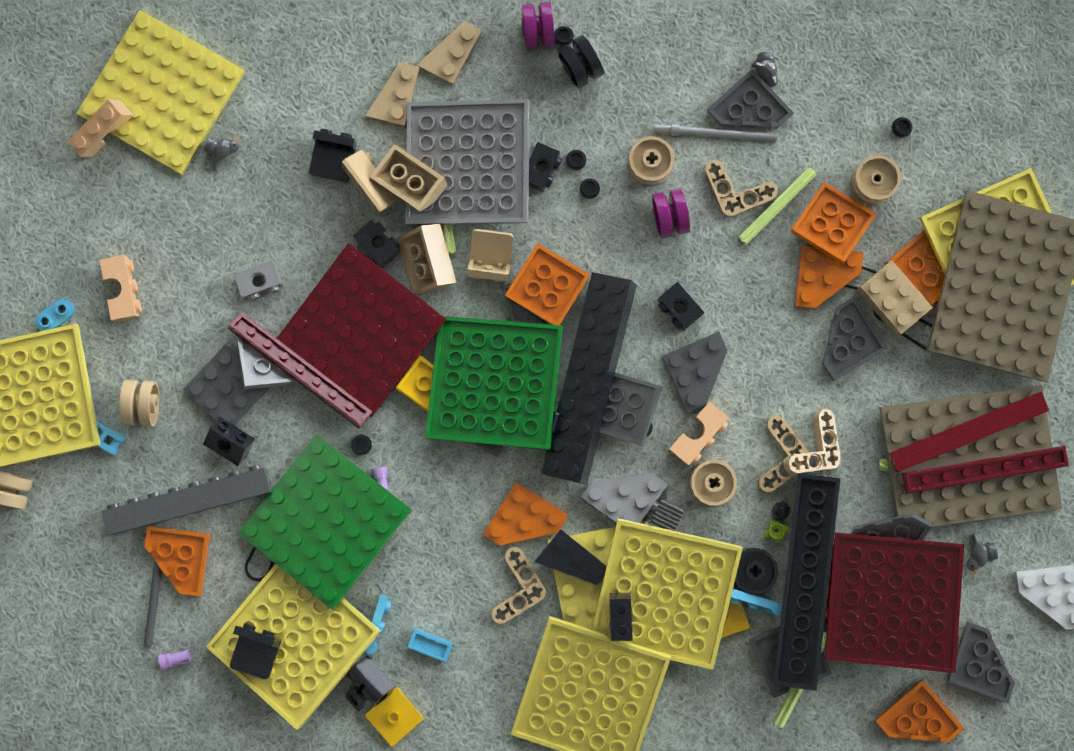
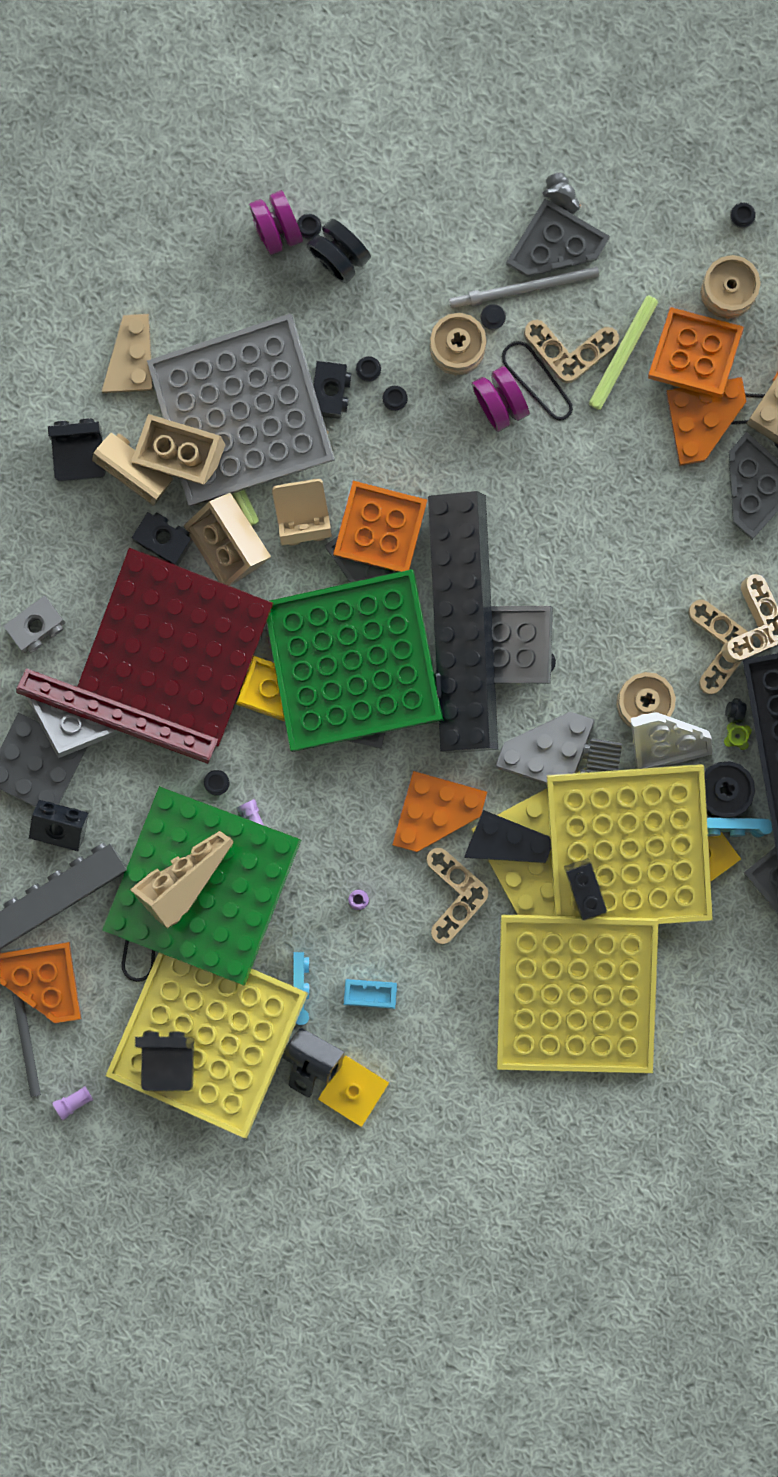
camera: 15 degrees left, 0 degrees up
(302, 518) = (174, 890): none -> tan wedge
(443, 569) = (358, 900): none -> lavender pin
(452, 53) = (182, 287): tan wing -> none
(675, 295) = (538, 492): black brick -> none
(684, 148) = (493, 317): none -> black plate
(695, 213) = (548, 374): none -> black piece
(696, 369) = (586, 574): dark grey plate -> none
(712, 421) = (622, 629): light nougat arch -> none
(719, 518) = (667, 741): none -> white plate

